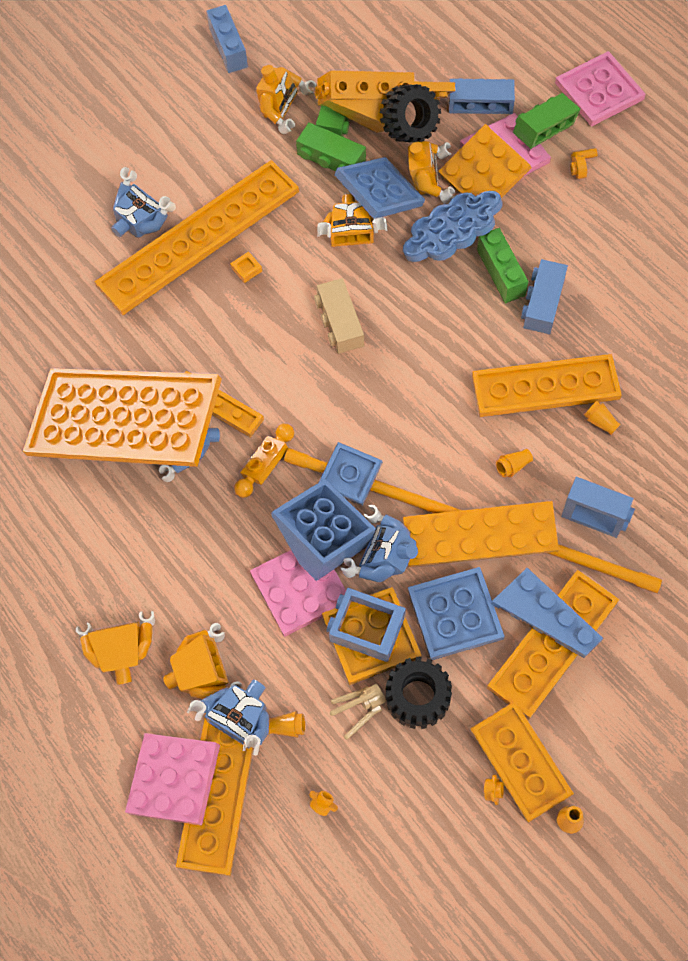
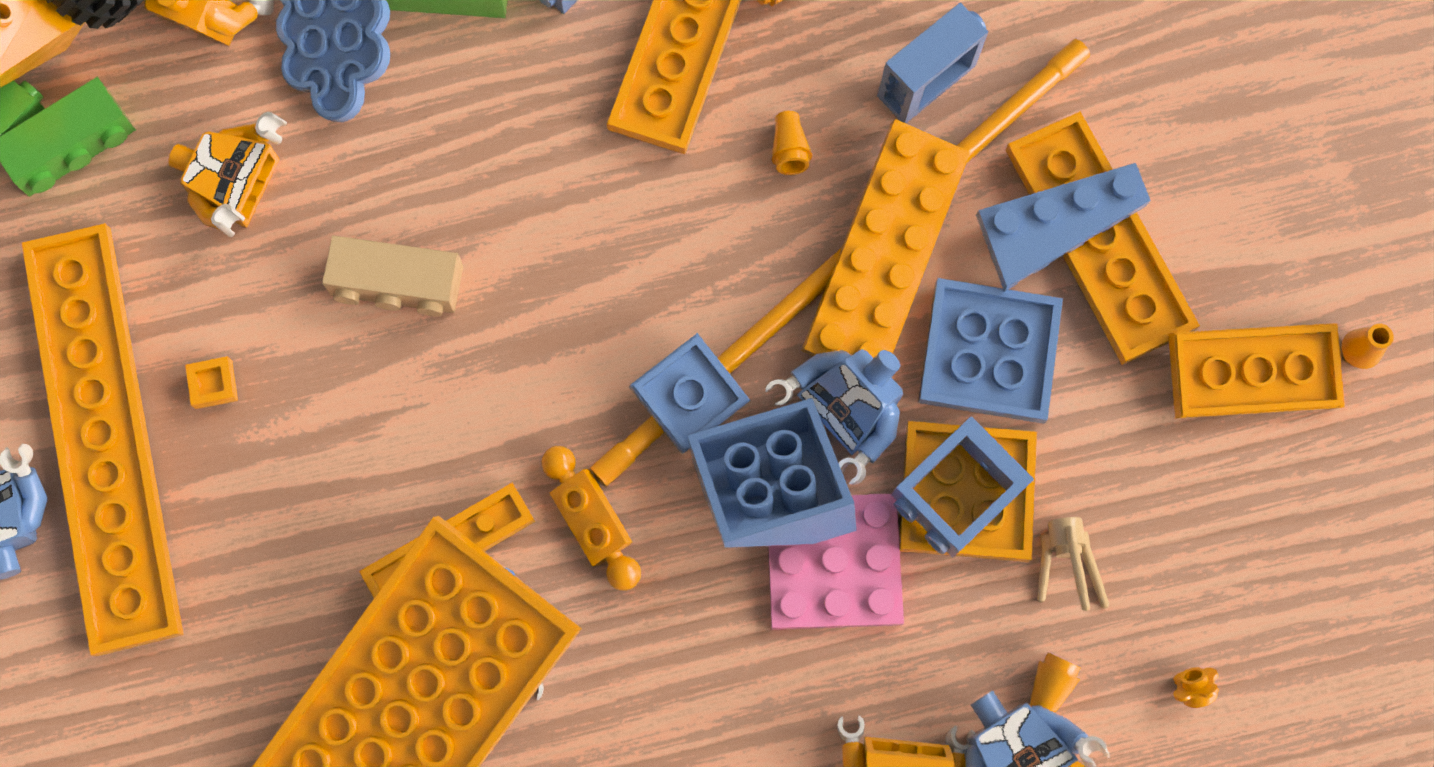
camera: 70 degrees left, 10 degrees up
(379, 187) = (190, 95): medium blue plate -> none
(424, 672) = (1123, 445): black tyre -> none
(493, 789) = (1281, 430): light orange plate -> none

